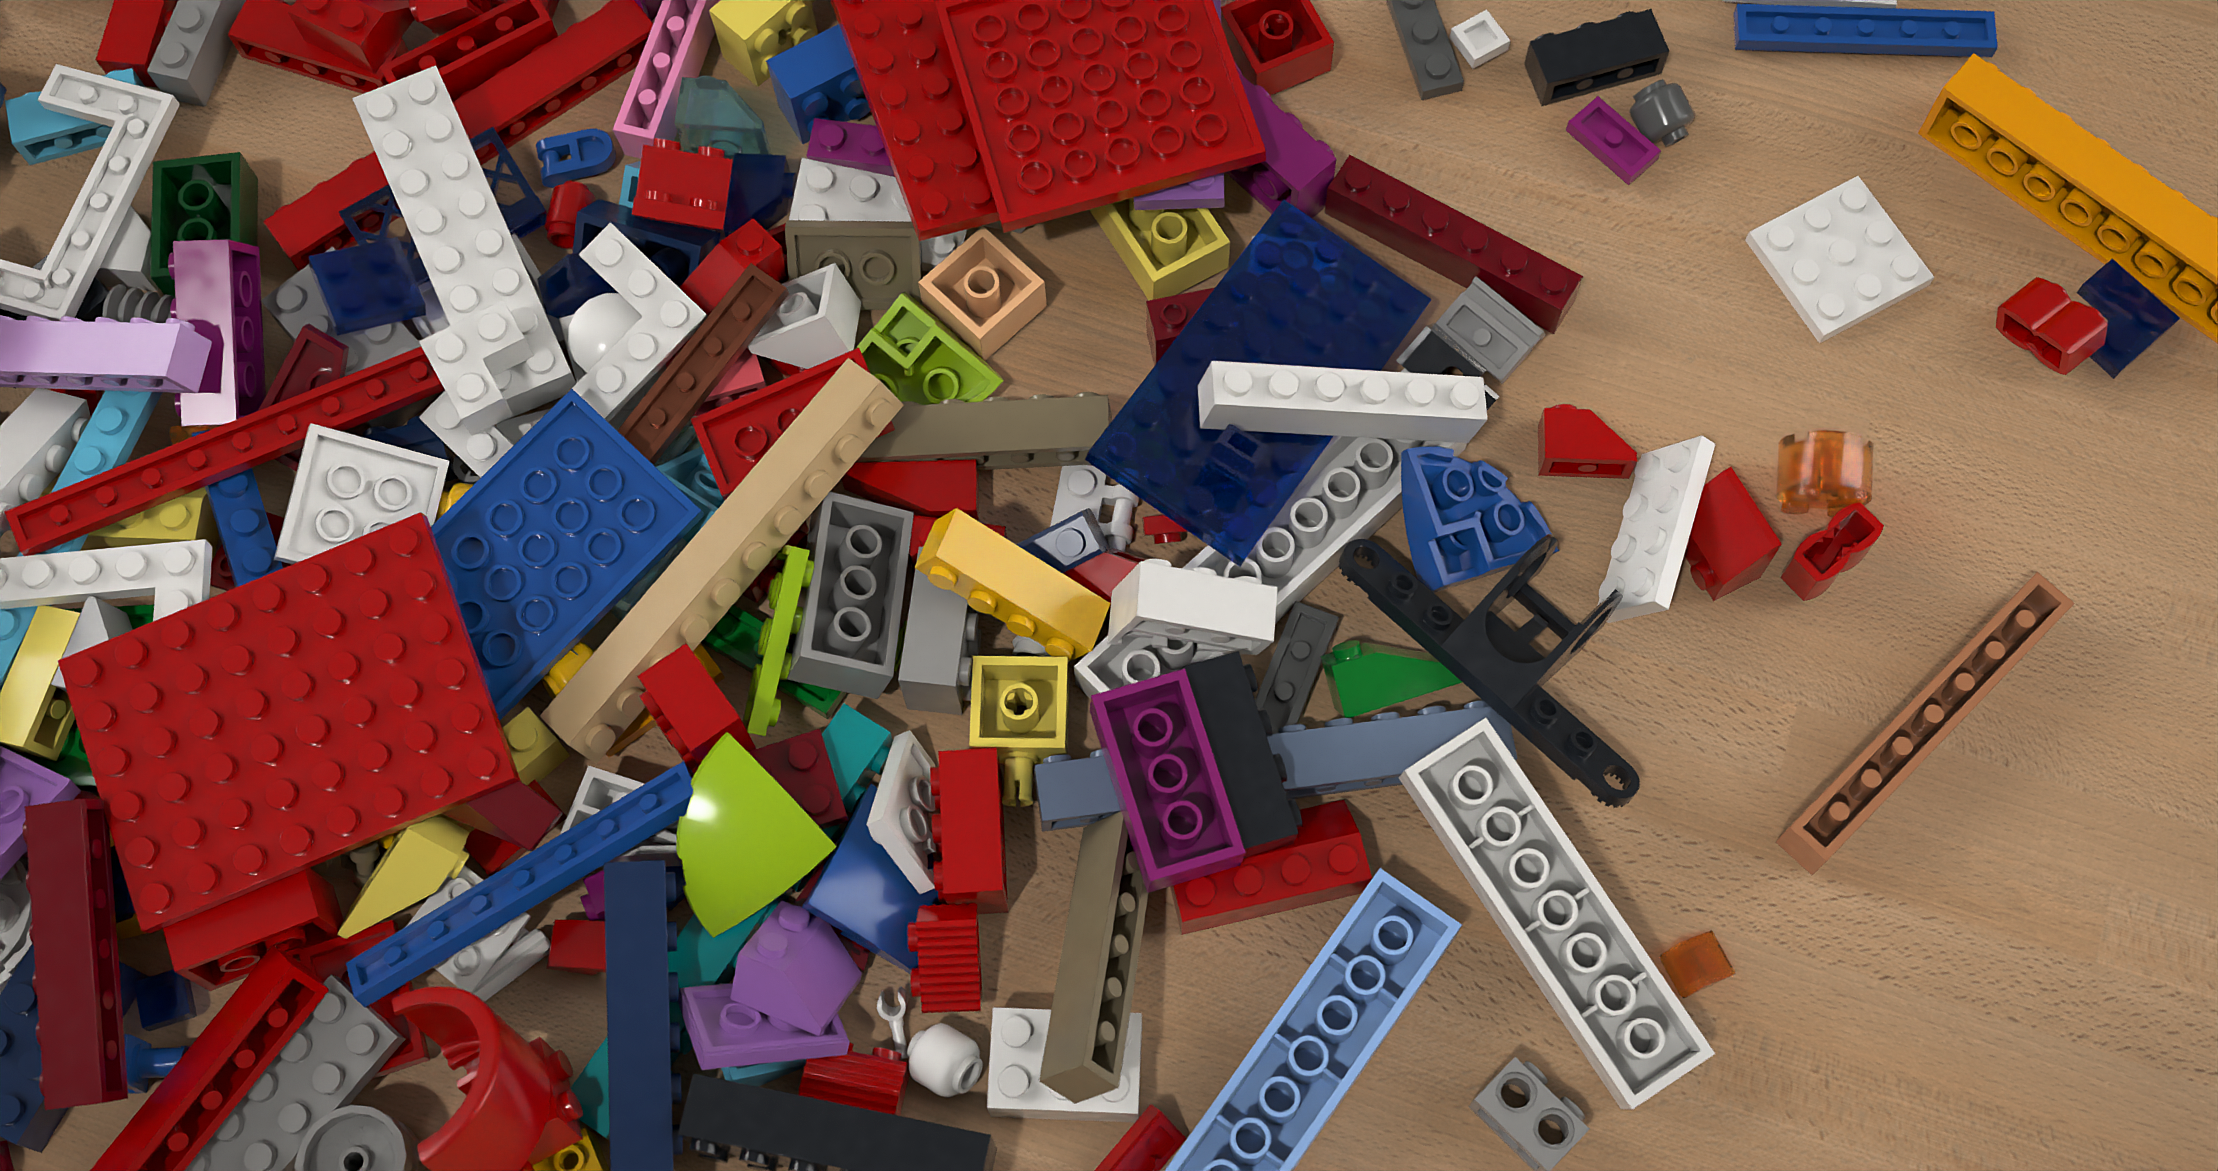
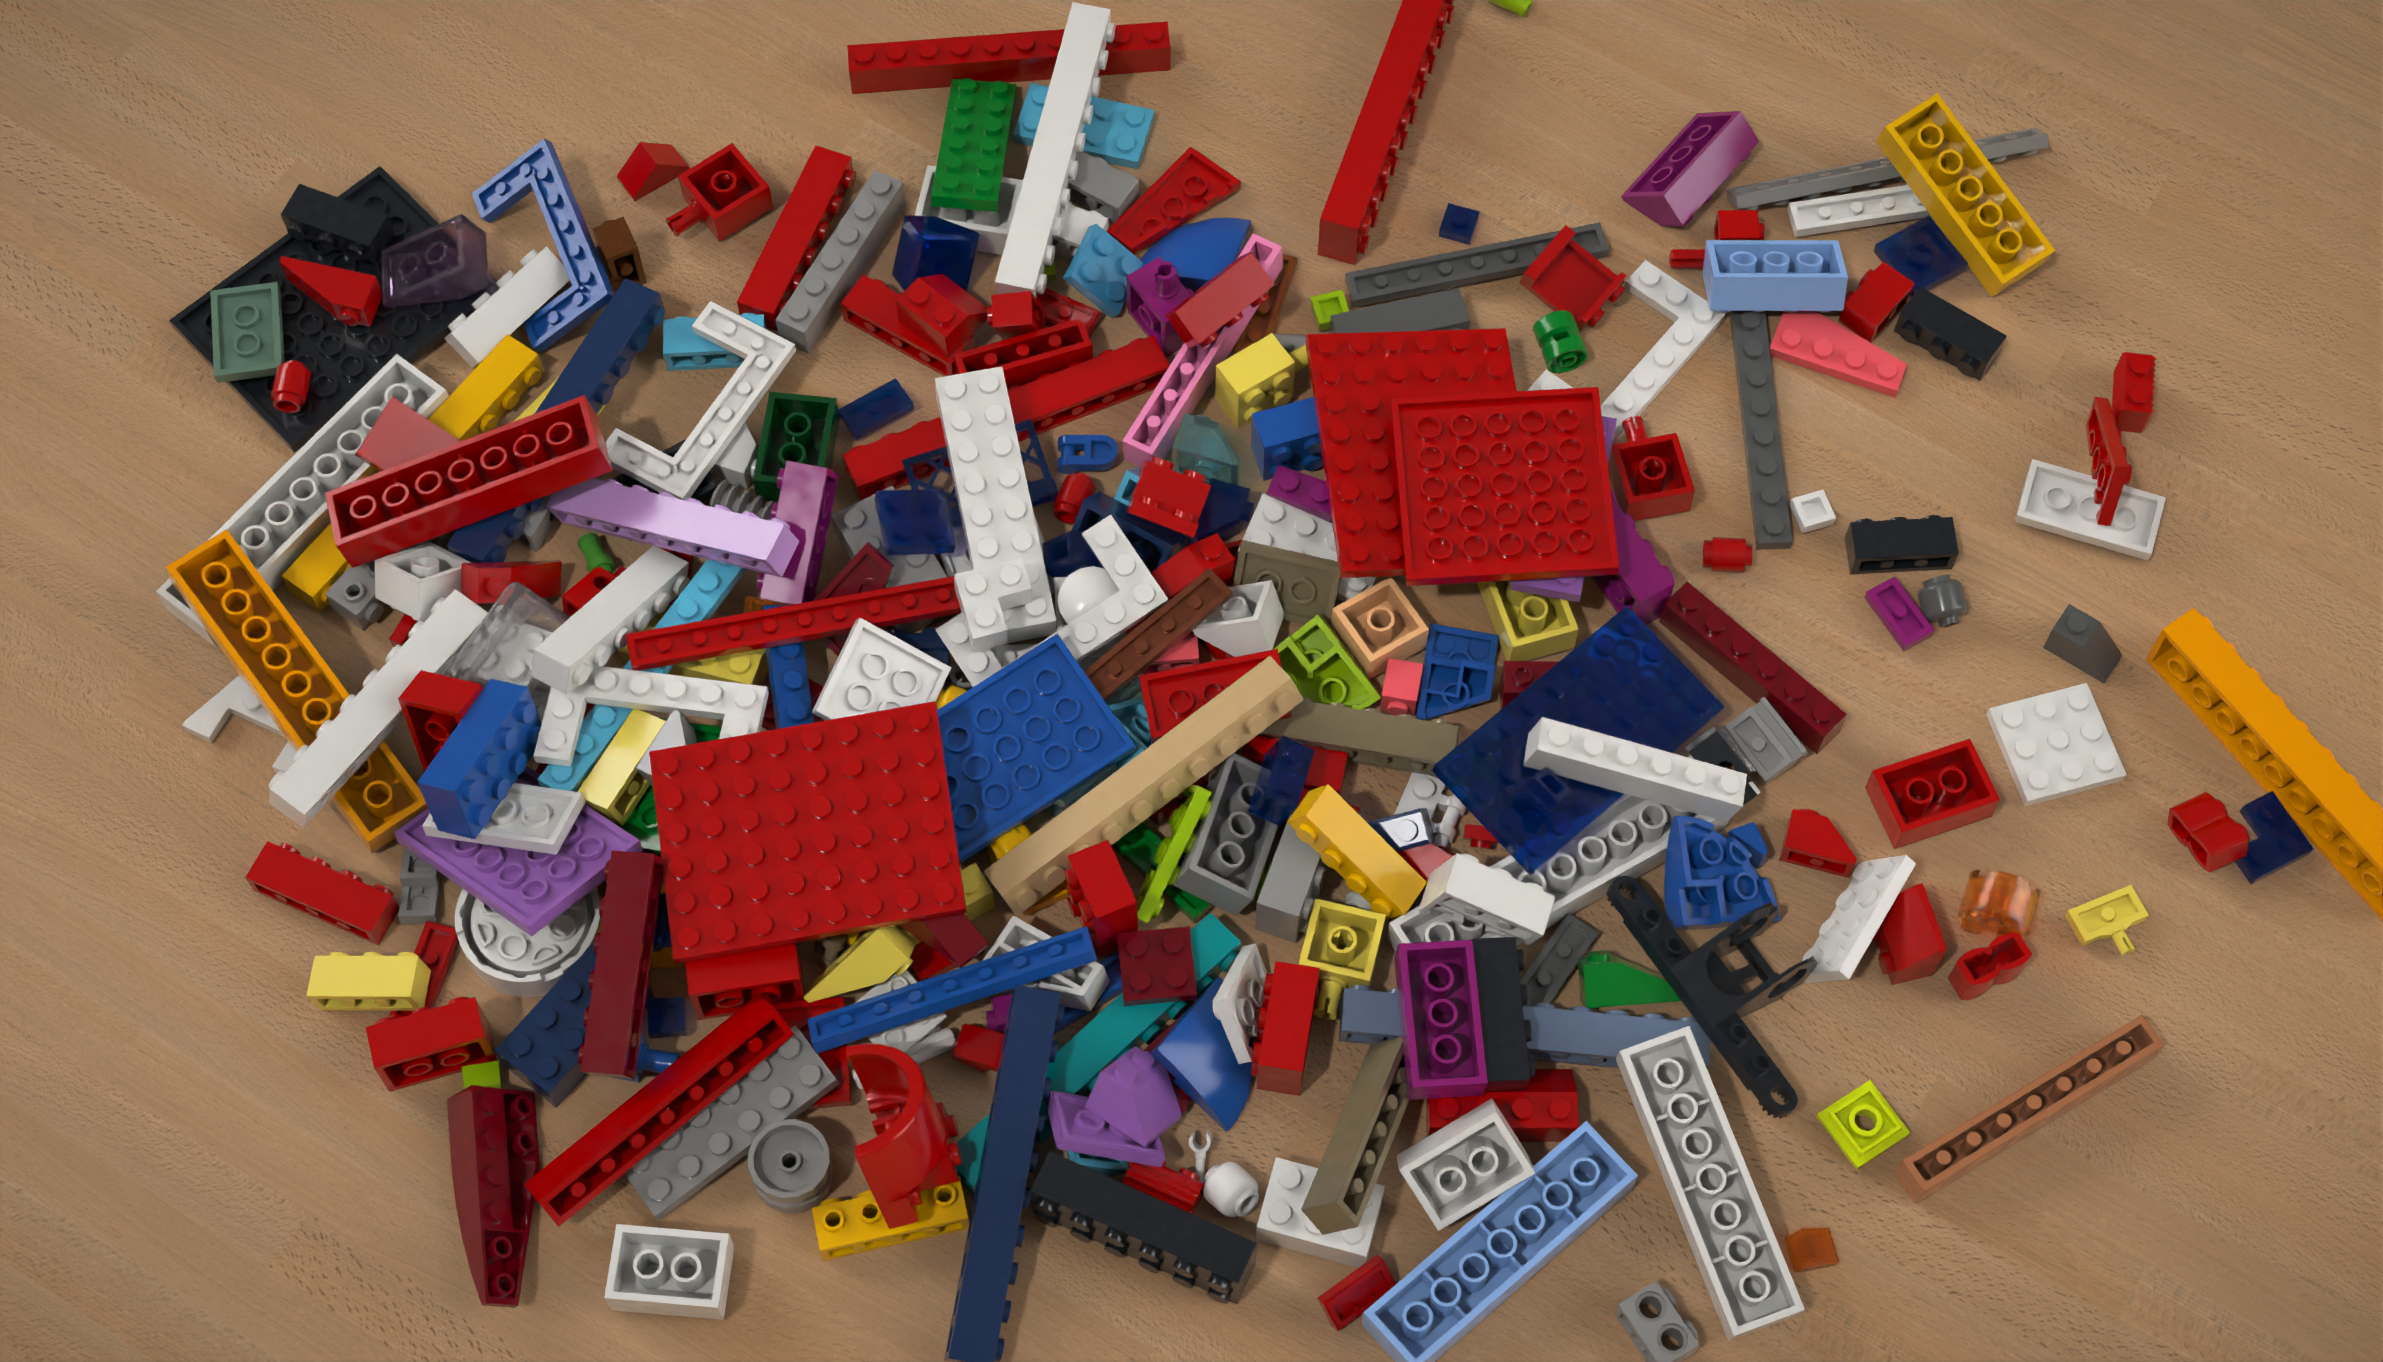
camera: 10 degrees right, 5 degrees down
(299, 157) = (876, 409): none -> clear blue plate
(742, 838) = (1118, 992): lime brick -> none
(897, 514) = (1281, 780): none -> clear blue brick
(947, 958) = (1250, 1115): red brick -> none
(1025, 362) = (1401, 687): none -> coral brick
(1089, 326) = (1456, 670): none -> blue slope
(1238, 962) = (1465, 1164): none -> white brick
(1388, 113) = (1726, 554): none -> red brick
(1503, 458) = (1752, 840): none -> blue slope
(1708, 351) = (1932, 793): none -> red brick
(1722, 815) = (1855, 1143): none -> neon yellow piece
(1842, 129) = (2083, 644): none -> dark grey slope
(1865, 30) = (2122, 569): blue plate -> none
(1958, 459) = (2108, 918): none -> light yellow plate

